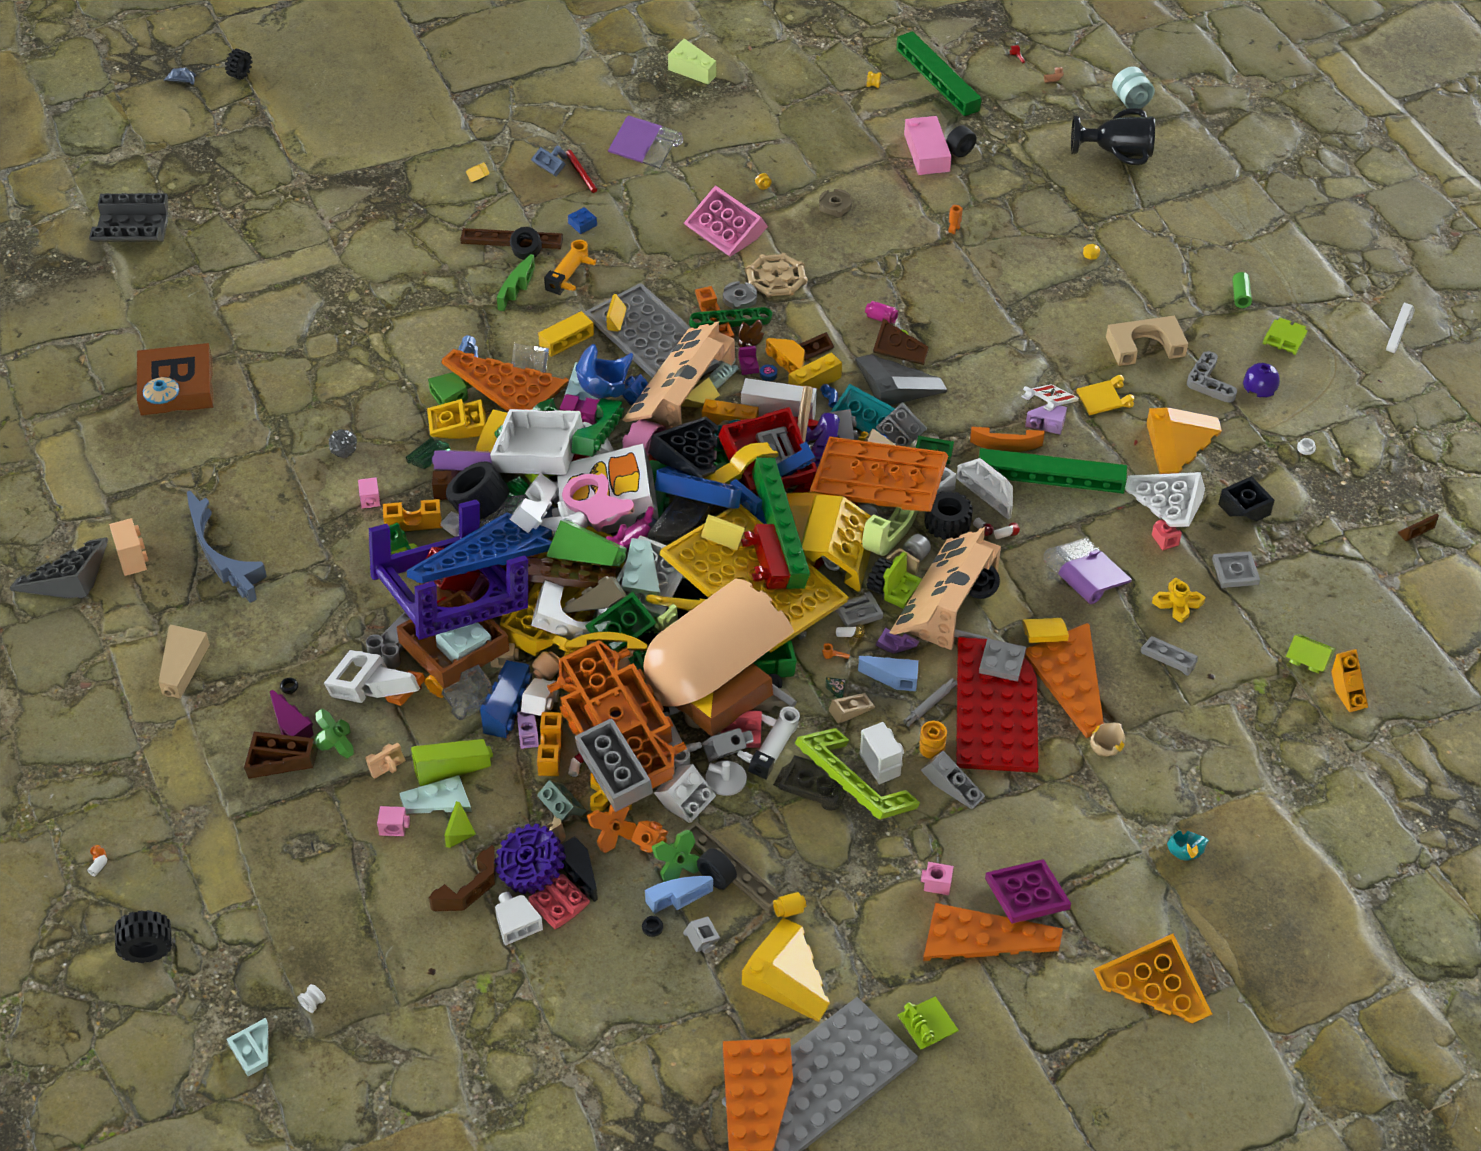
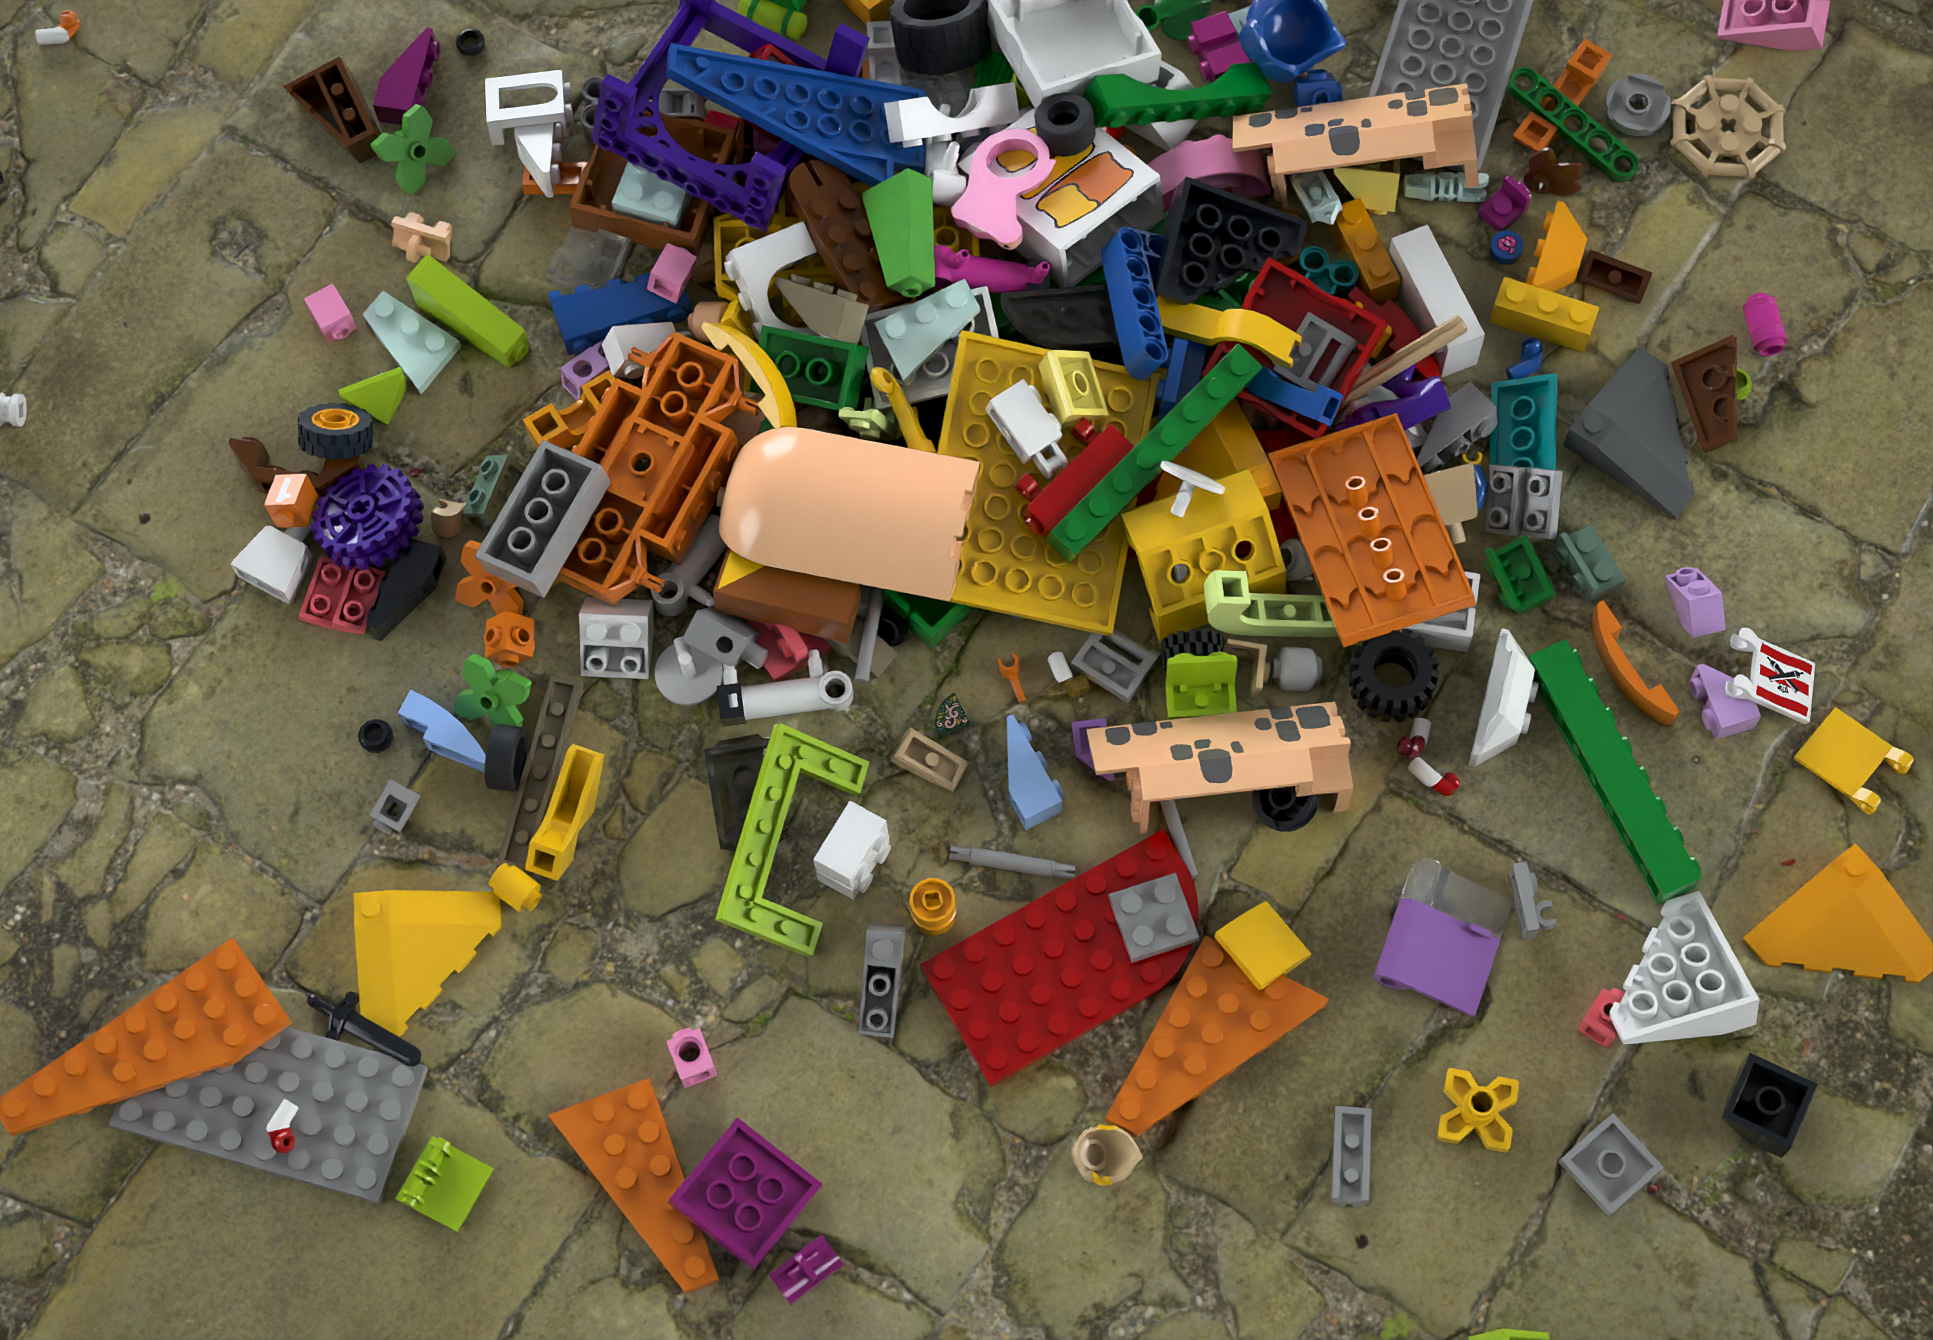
camera: 60 degrees right, 20 degrees up
(467, 848) = (335, 431): none -> black wheel
(492, 886) = (291, 500): none -> orange brick
(512, 658) = (672, 272): none -> bright pink brick
(583, 461) = (1064, 109): none -> black tyre
(696, 410) = (1316, 195): none -> light aqua plate
(731, 555) = (1028, 427): none -> white brick
(765, 857) = (569, 809): none -> yellow arch
(802, 1020) = (344, 1018): none -> black sword
(811, 509) = (1191, 480): none -> white shield
(853, 1077) = (279, 1128): none -> arm
(945, 427) = (1589, 563): none -> sand green bracket
(994, 402) = (1696, 602): none -> lavender slope
(1085, 887) = (806, 1270): none -> magenta hips
(1091, 531) = (1523, 888): none -> light grey plate

